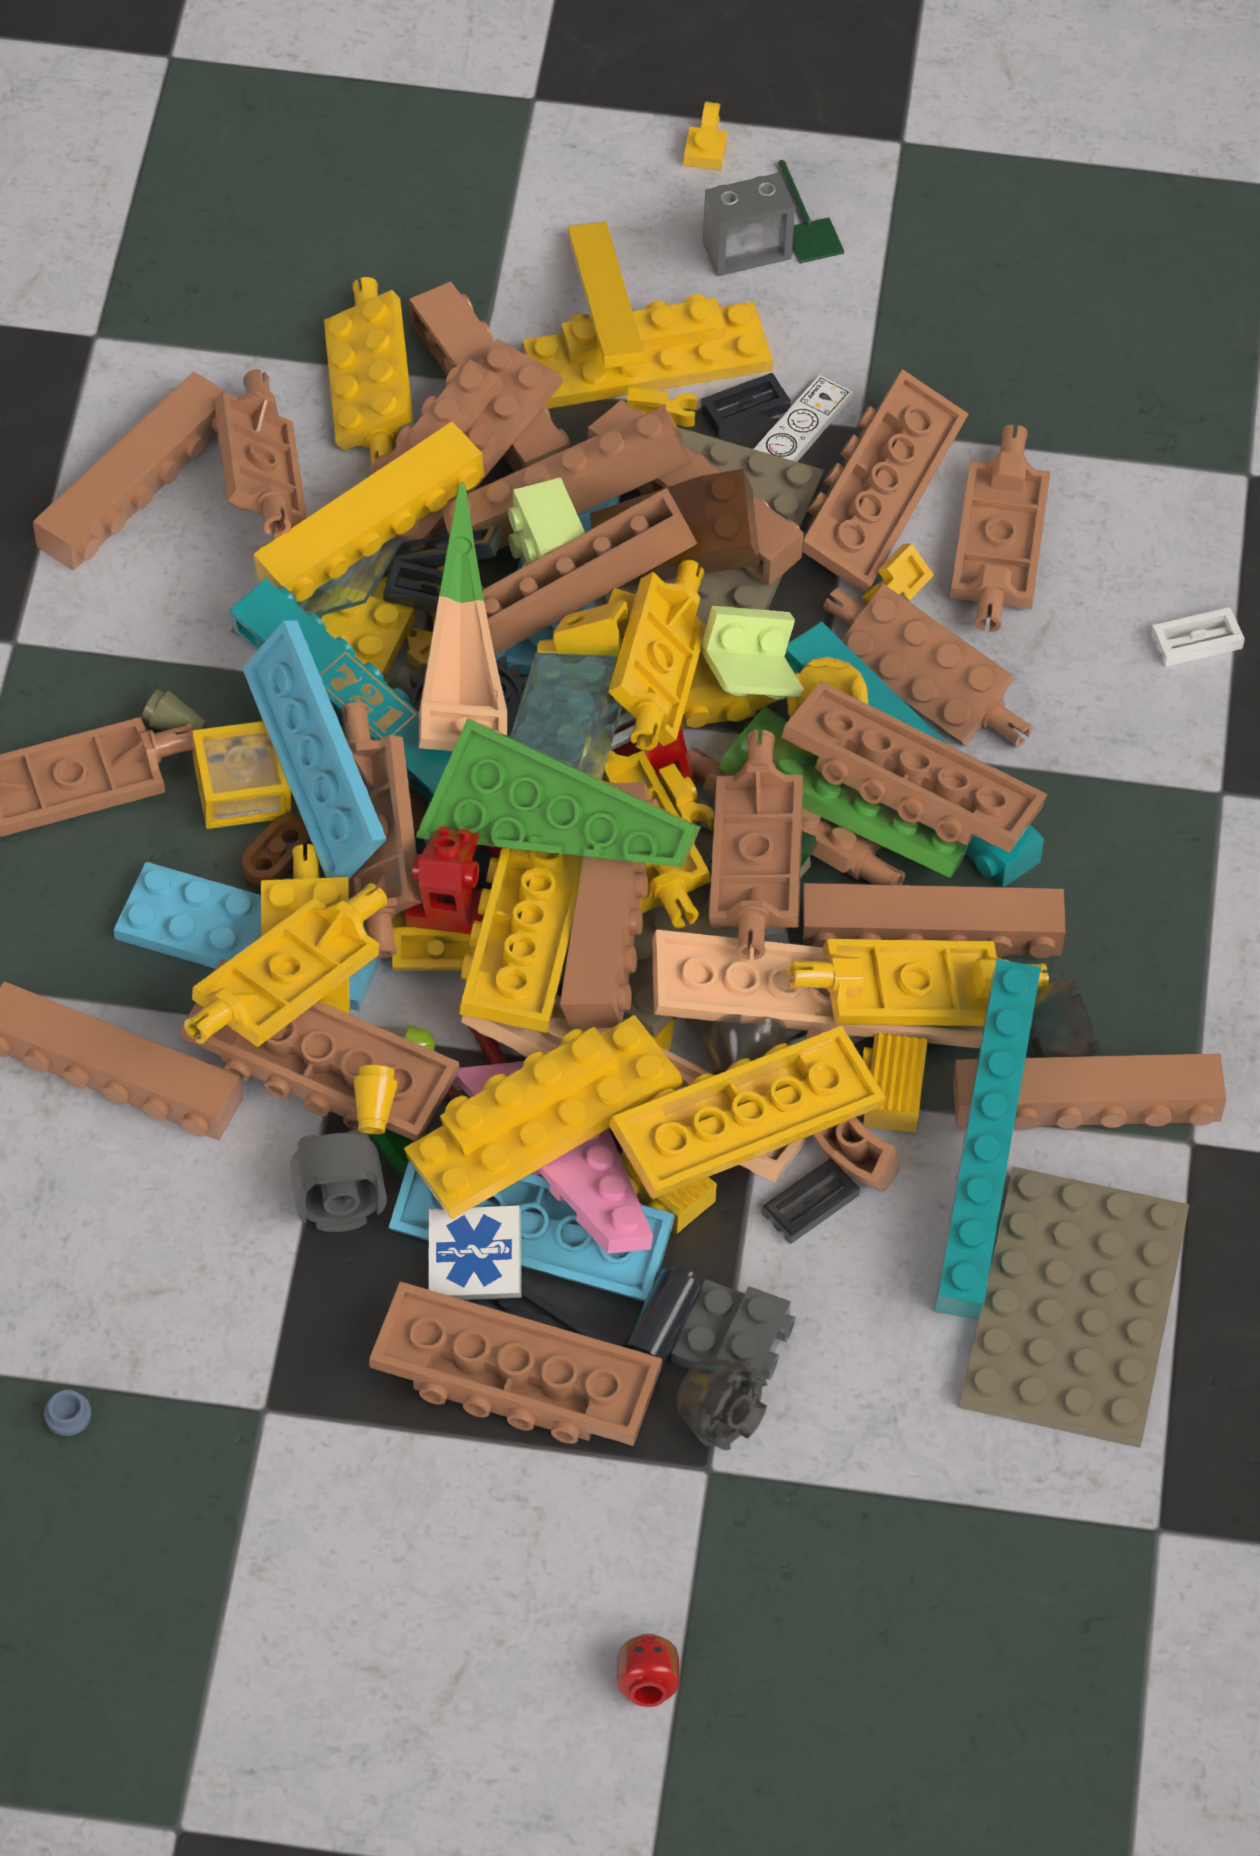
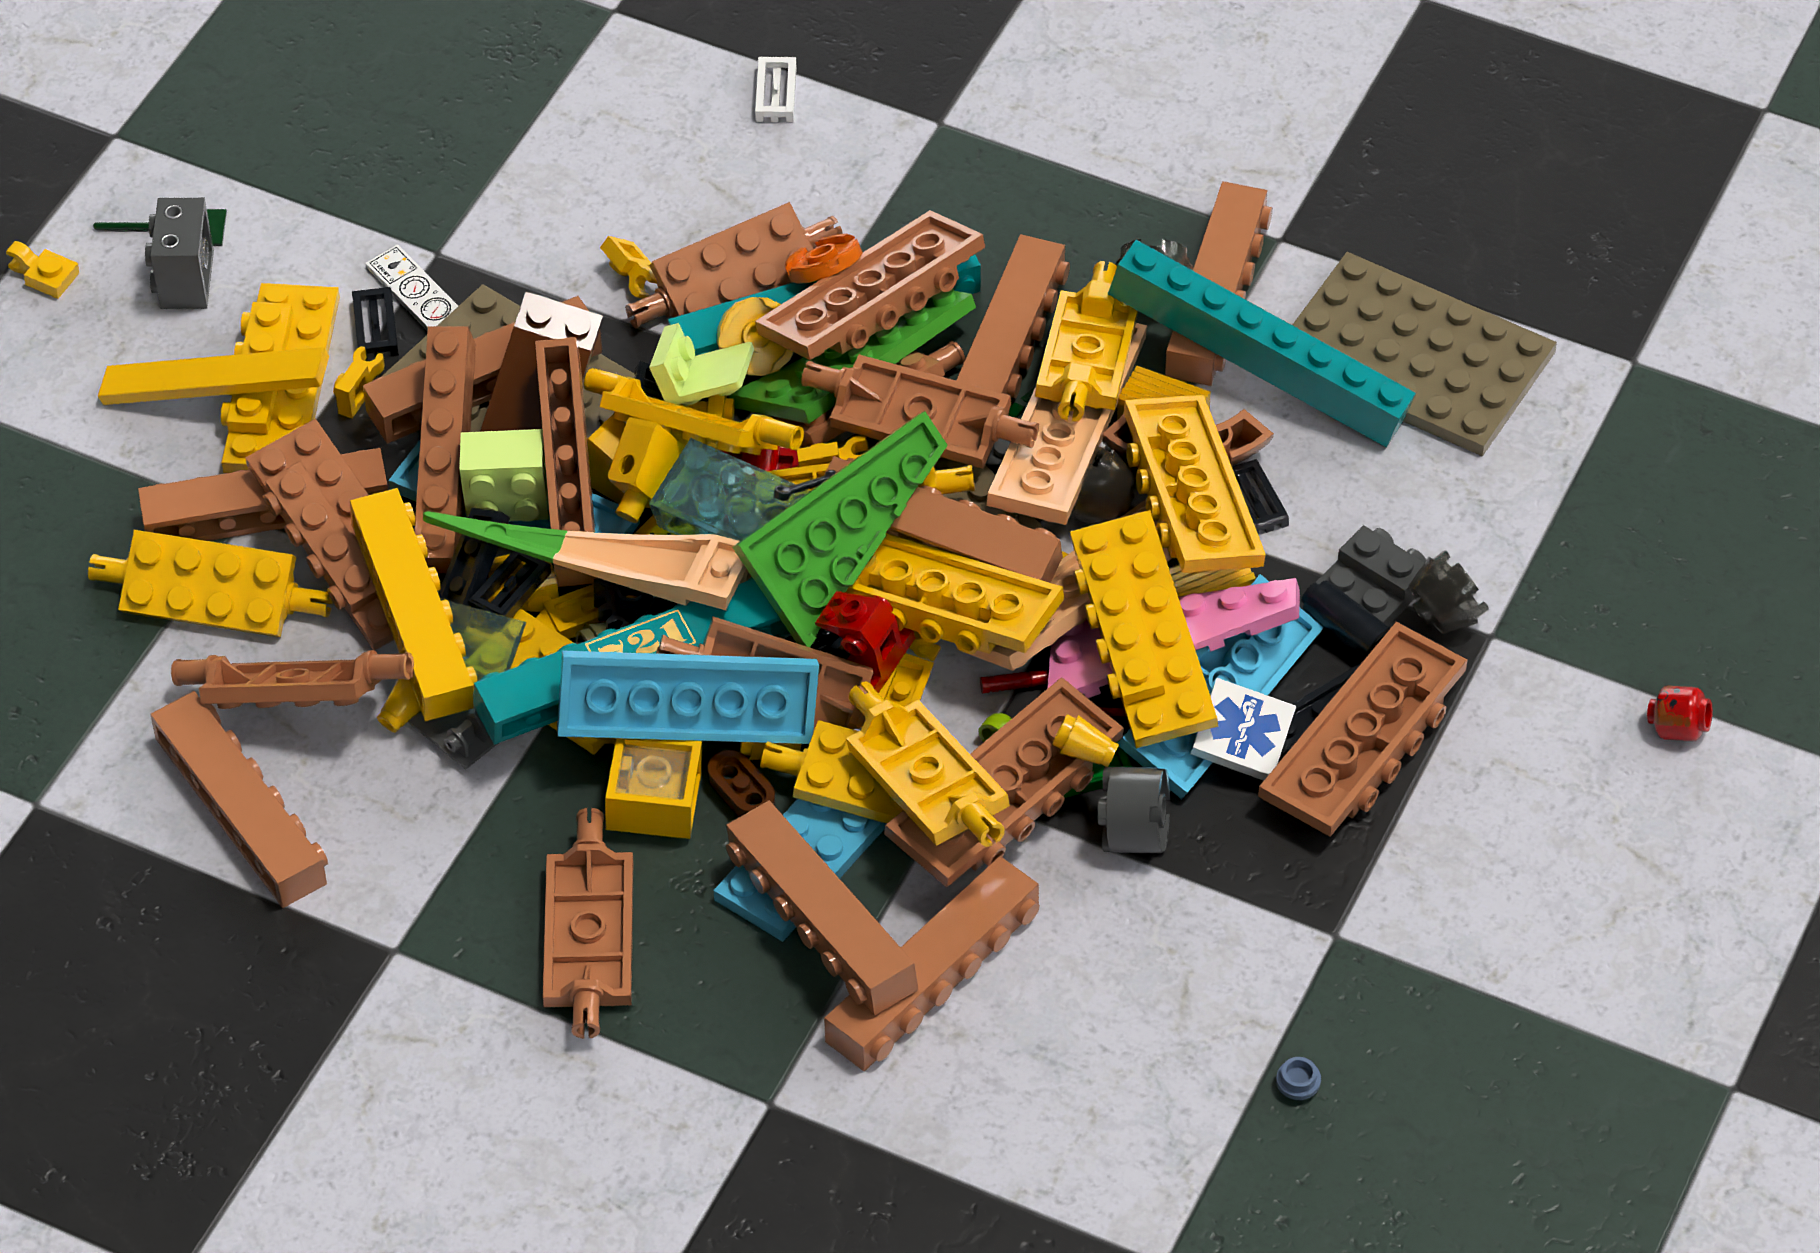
camera: 70 degrees left, 5 degrees down
(120, 939) = (821, 908): none -> nougat brick
(167, 712) = (550, 833): olive cone -> none
(558, 742) = (783, 492): none -> black hinge
(880, 480) = (515, 242): nougat plate -> none
(942, 722) = (827, 259): none -> orange tile
(1000, 531) = (610, 182): nougat plate -> none

